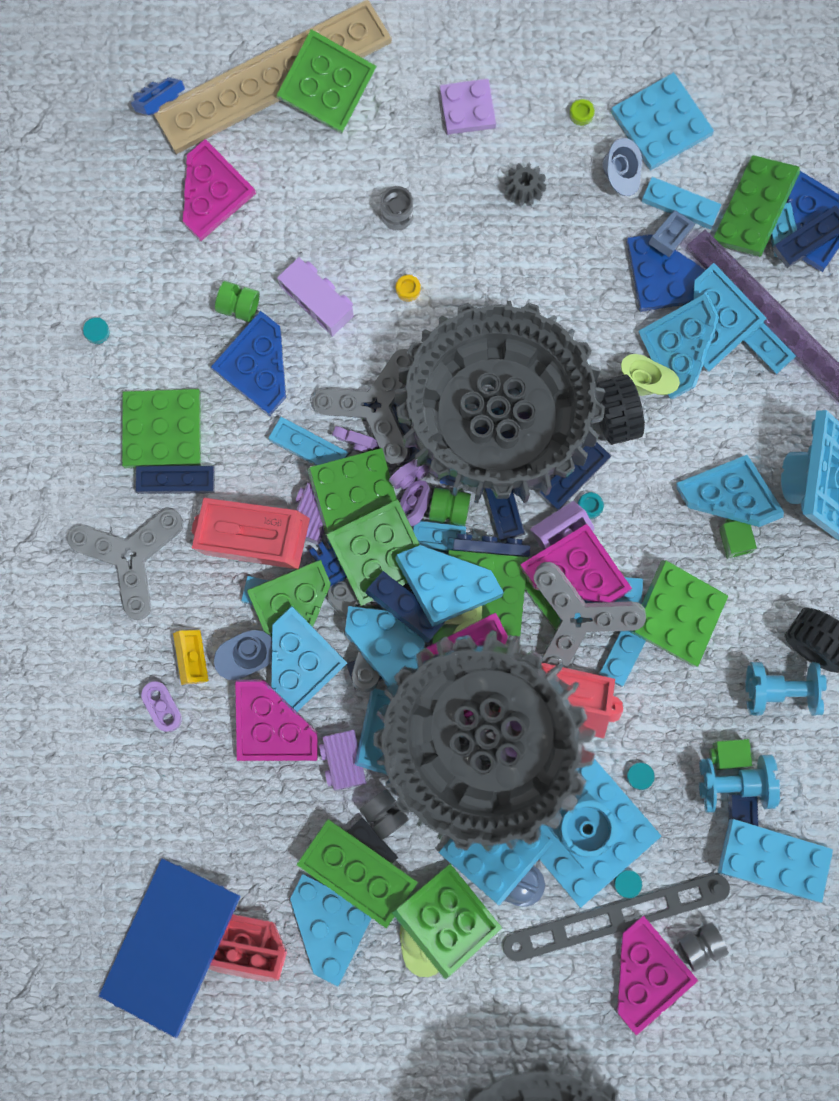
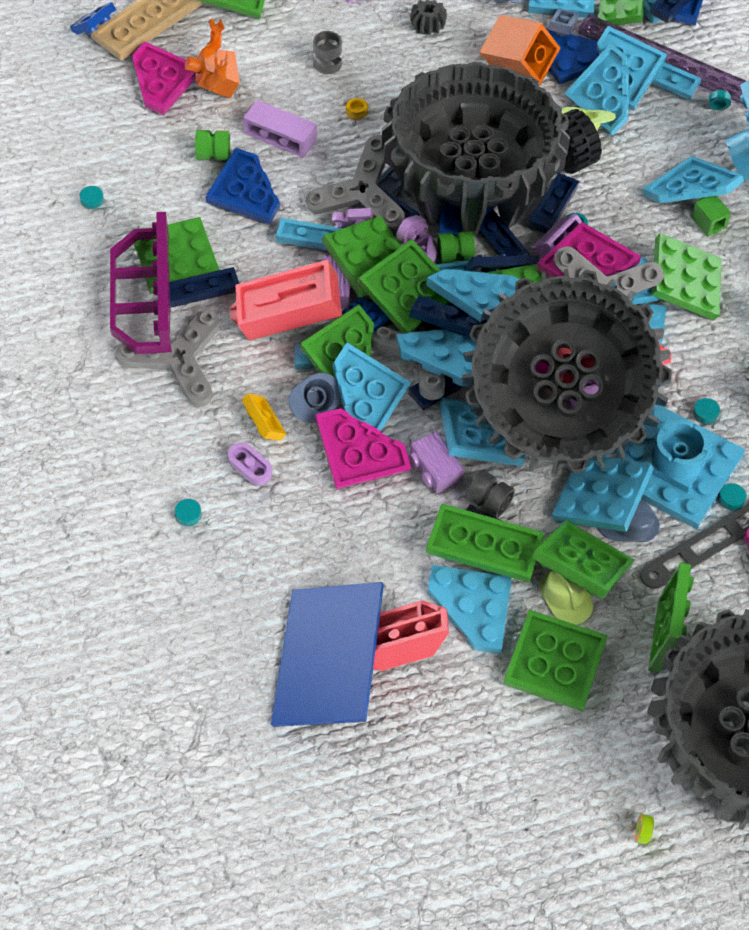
camera: 20 degrees left, 20 degrees down
(87, 742) = (188, 512): none -> teal tile
(125, 483) = (160, 287): none -> magenta plate
(267, 199) = (213, 67): none -> orange torso
(385, 1014) = (555, 660): none -> bright green plate
(504, 1020) = (670, 615): none -> bright green plate
(607, 263) = (520, 47): none -> orange slope
(806, 388) = (719, 100): none -> teal tile

